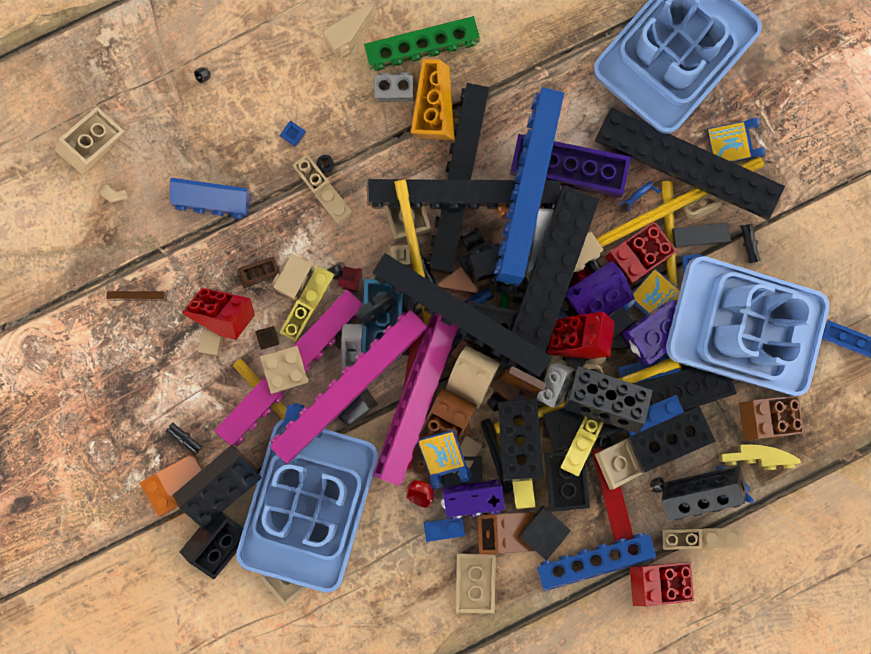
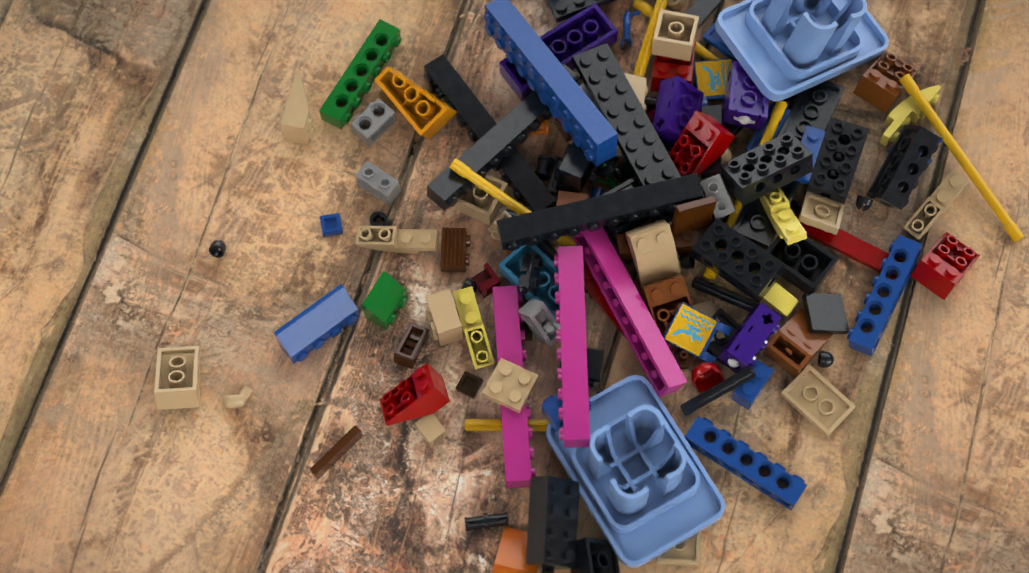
camera: 45 degrees left, 15 degrees down
(268, 226) = (384, 301): none -> green slope
(350, 136) = (378, 183): none -> light grey brick
(352, 236) = (453, 250): none -> reddish brown brick
(386, 623) = (768, 485): none -> blue brick
(415, 511) = (718, 390): none -> black axle
(510, 562) = (825, 359): none -> black hinge
(655, 239) = (675, 35): none -> tan brick
(736, 602) = (1009, 225): none -> yellow piece

